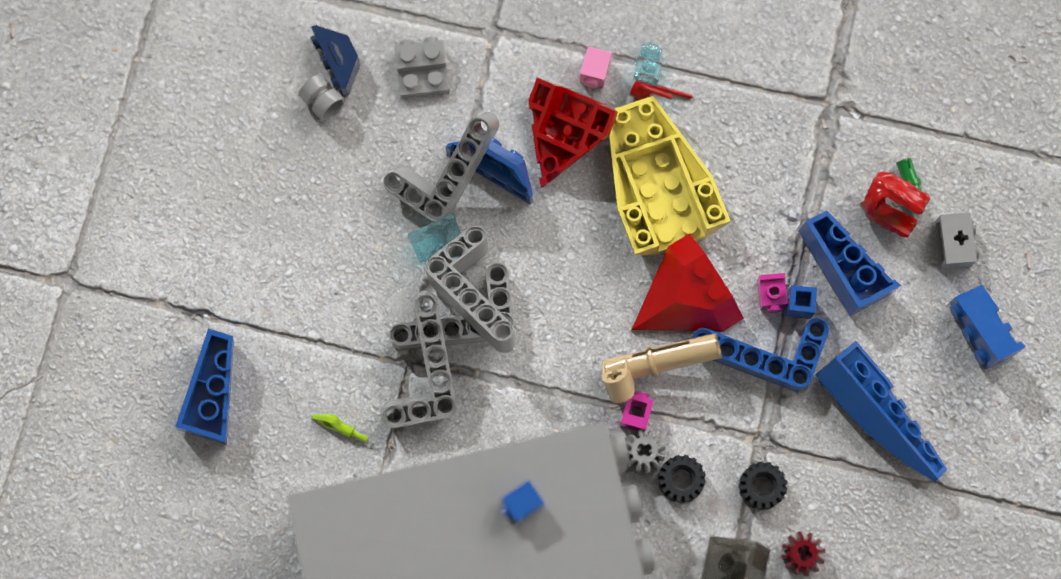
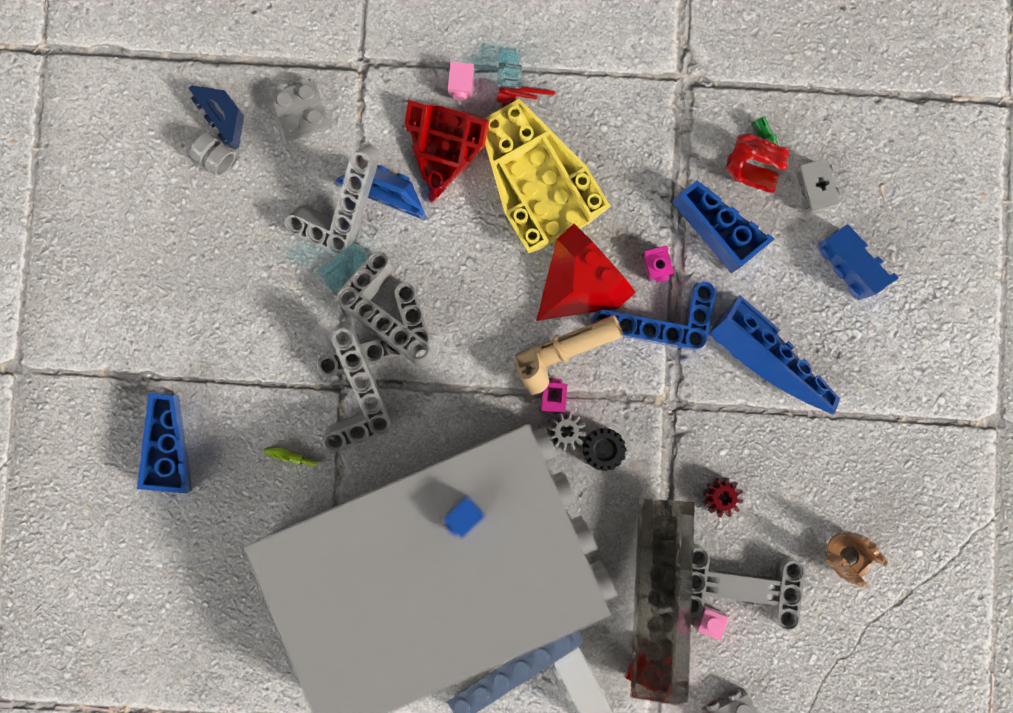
camera: 10 degrees left, 10 degrees up
(769, 471) = (691, 442): black tyre -> none
(801, 302) = (686, 269): blue brick -> none

